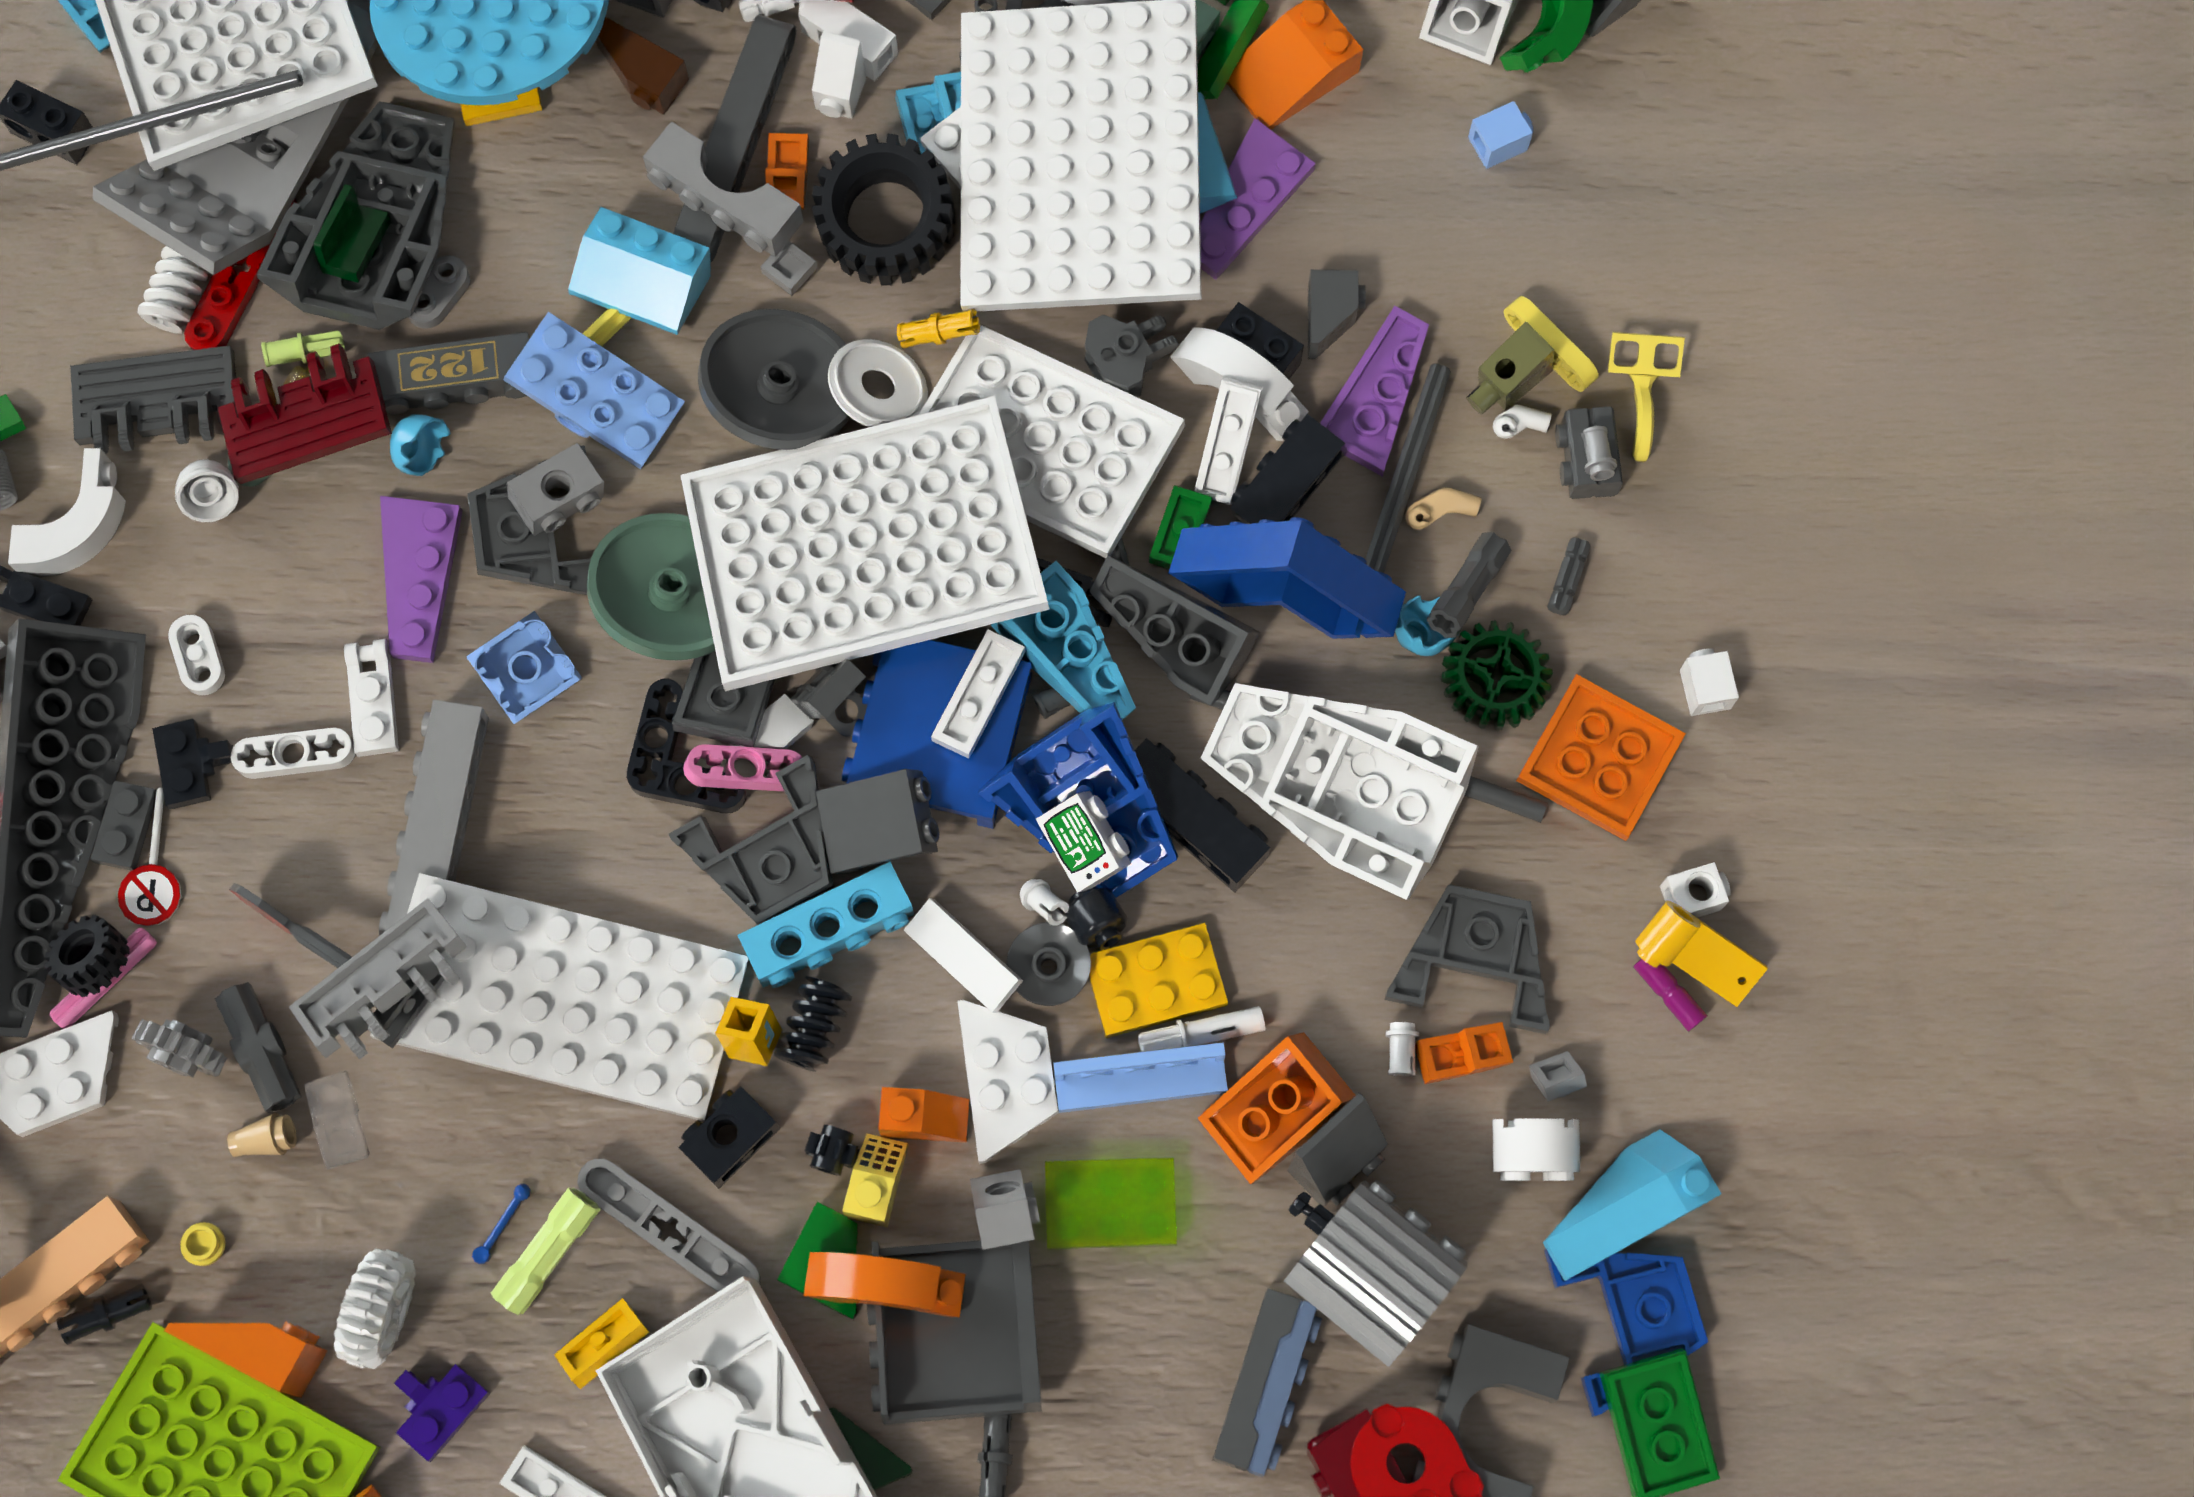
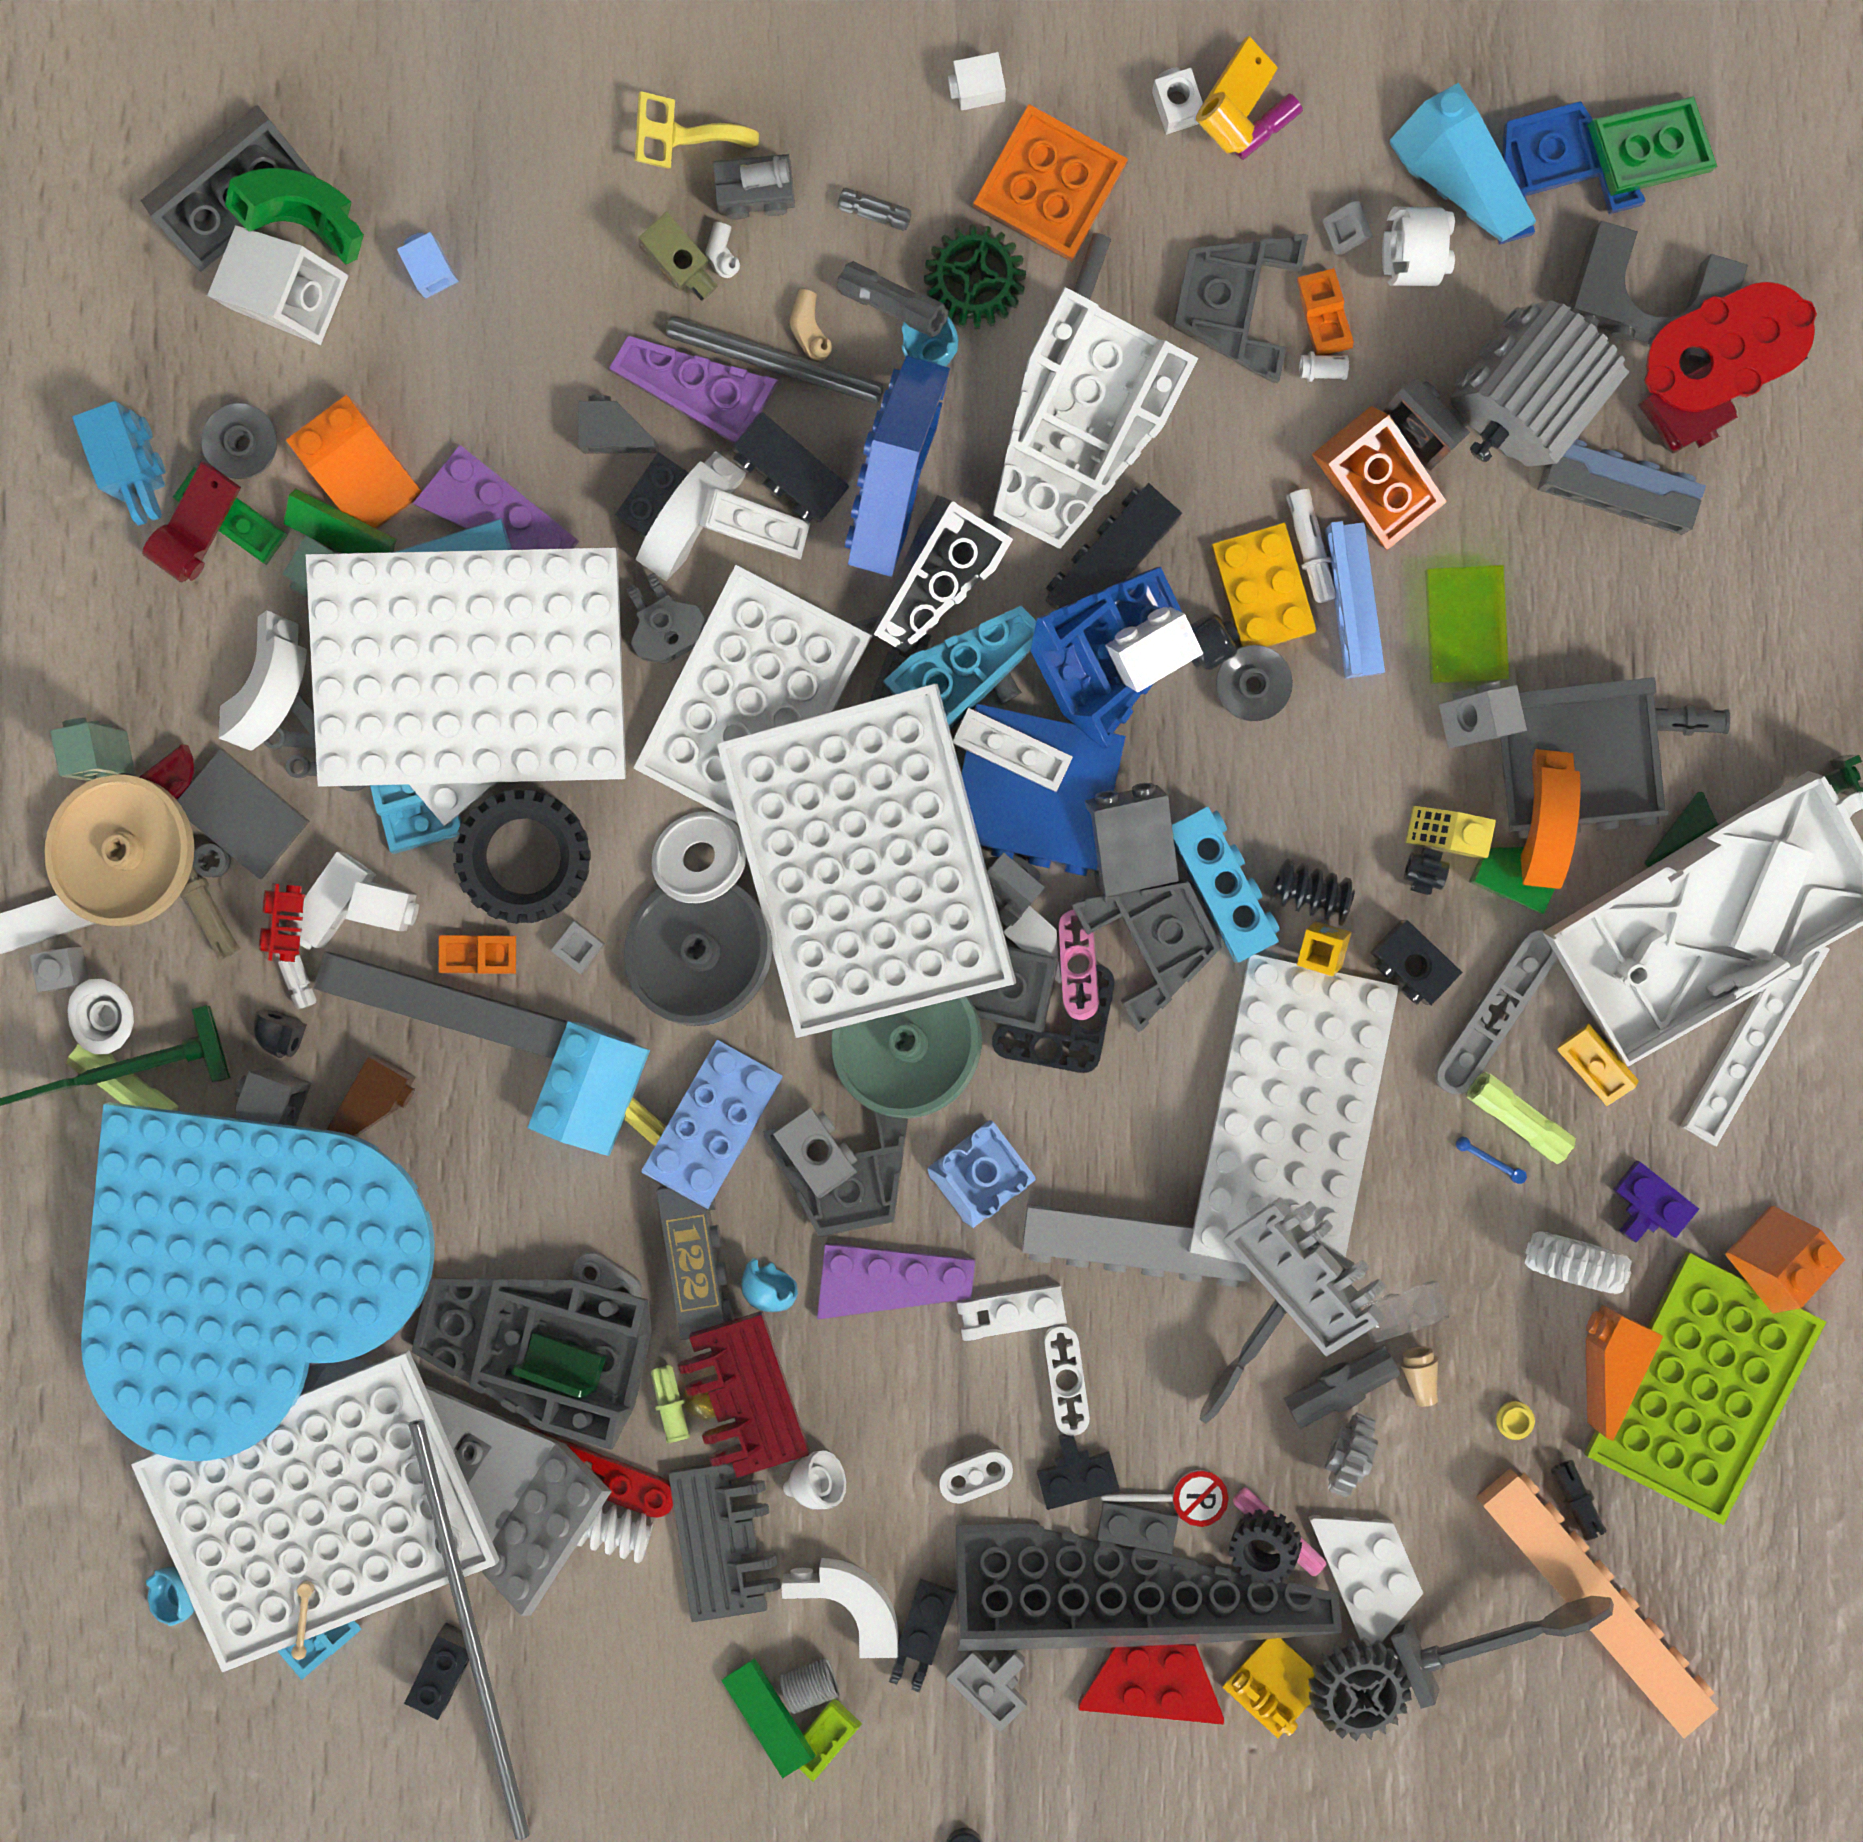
camera: 95 degrees left, 15 degrees up
(761, 216) = (538, 970): light grey arch -> none
(923, 1115) = (1393, 792): orange slope -> none
(938, 328) = (641, 801): yellow pin -> none
(963, 955) = (1247, 760): white tile -> none
(1006, 1076) = (1353, 719): white wing -> none
(1038, 897) = (1190, 696): white pin -> none
(1183, 510) = (831, 570): green plate -> none
(1568, 358) = (624, 237): light yellow beam -> none

